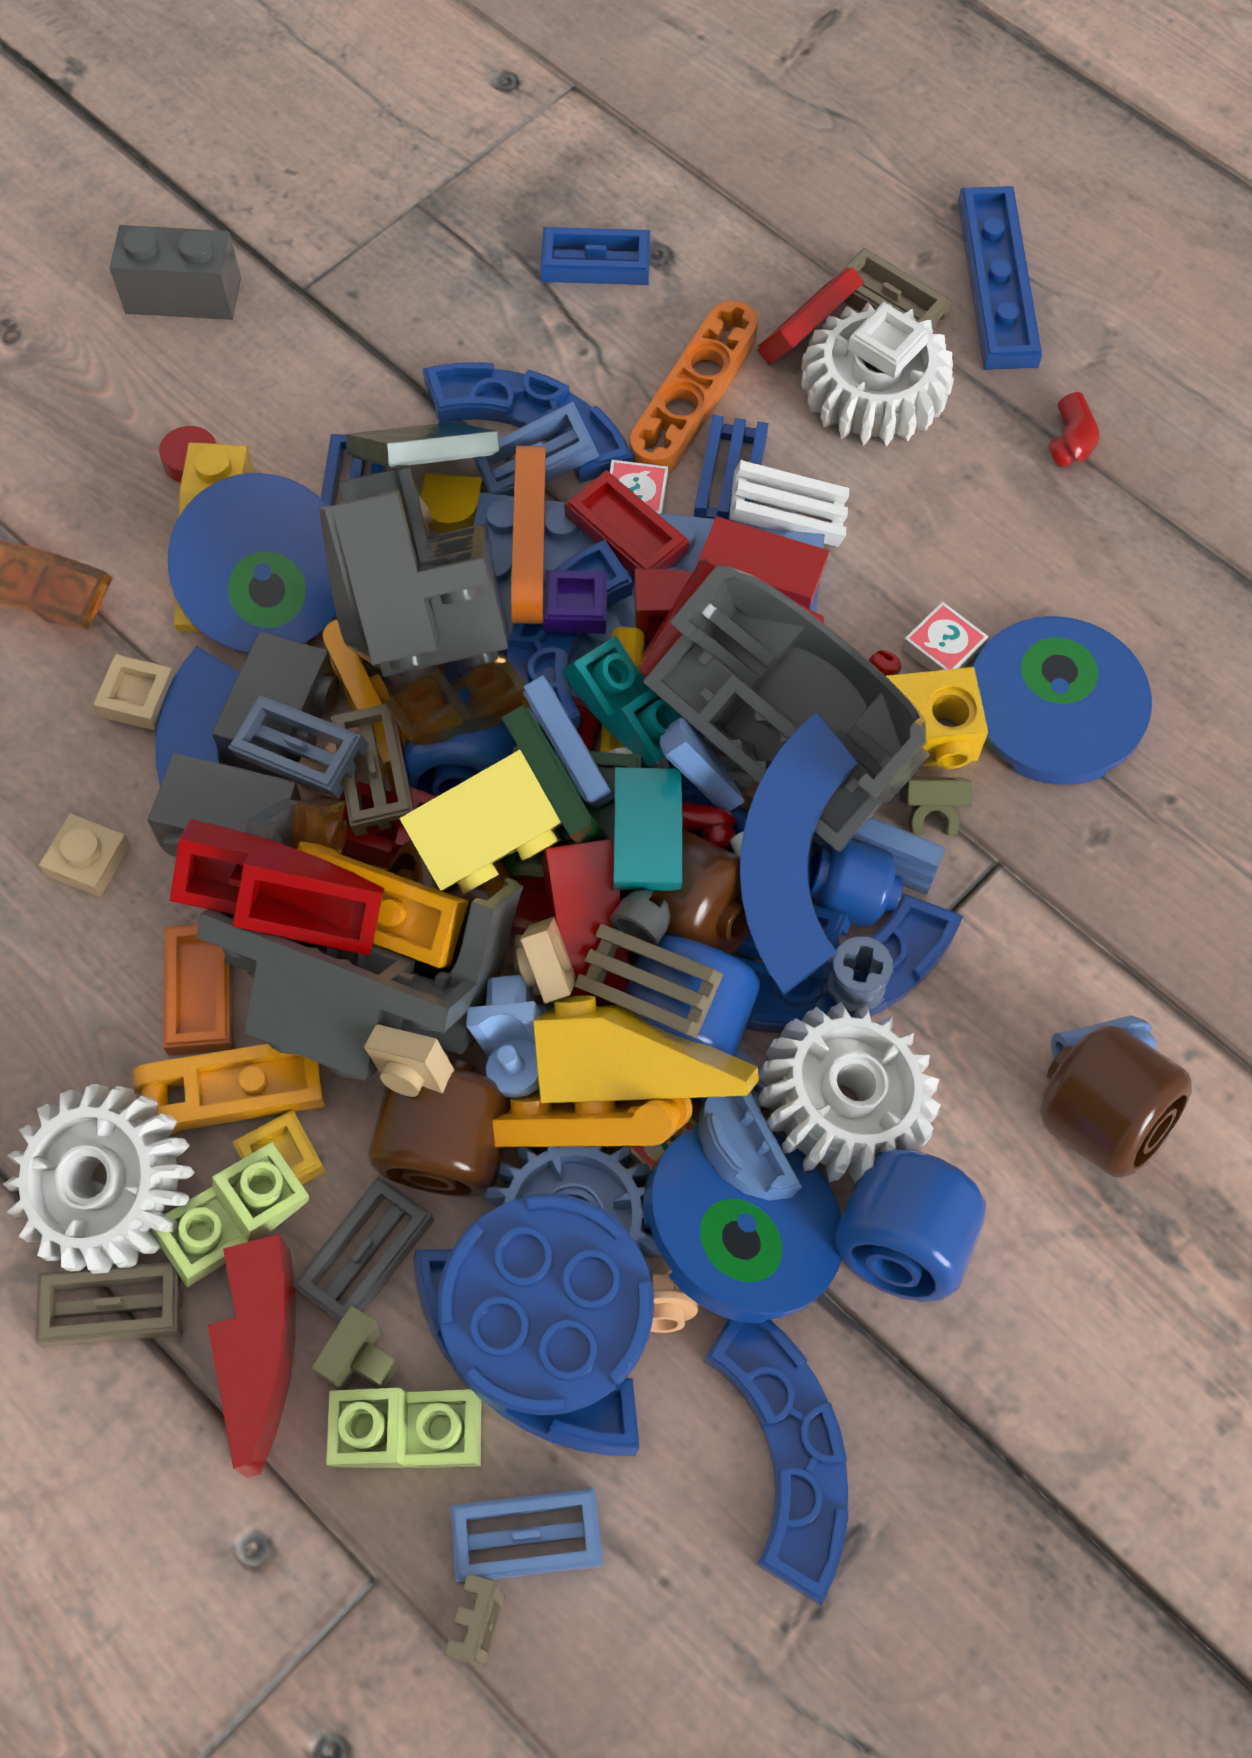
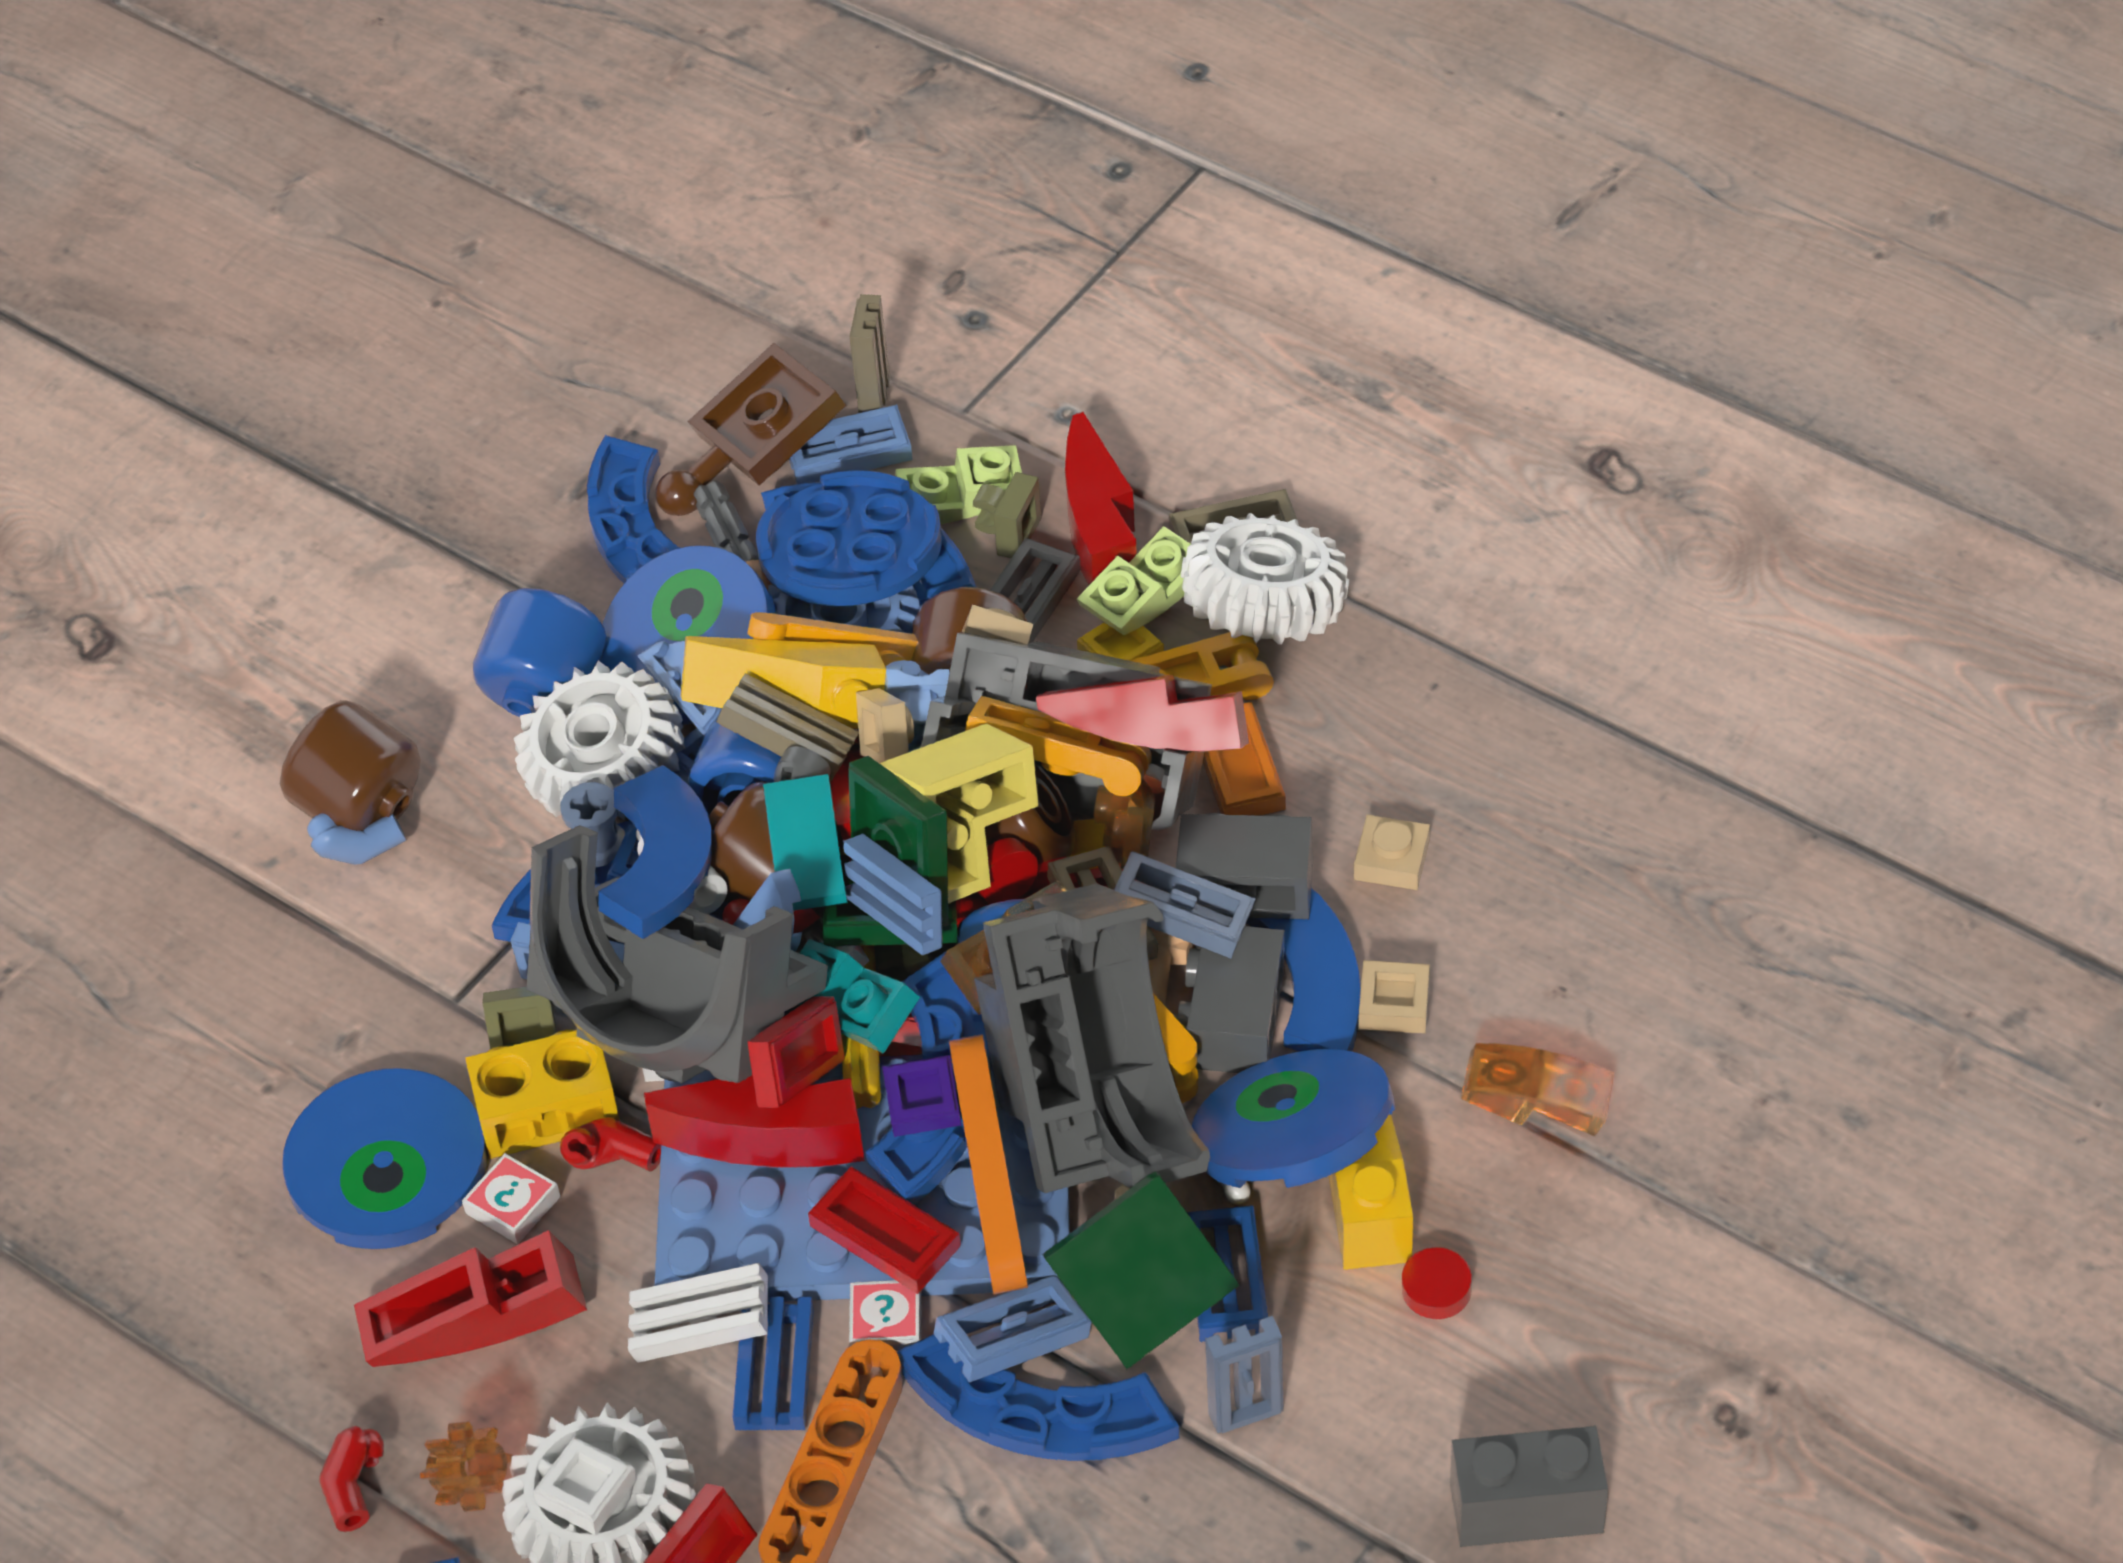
camera: 175 degrees right, 15 degrees down
(366, 381) = (1240, 1353): none -> sand blue tile
(667, 1579) = (756, 447): none -> reddish brown plate
(685, 1415) = (724, 521): none -> dark grey axle
(778, 560) = (722, 1210): red tile -> none
(977, 543) = (471, 1303): none -> red slope
(982, 404) = (447, 1470): none -> clear orange gear

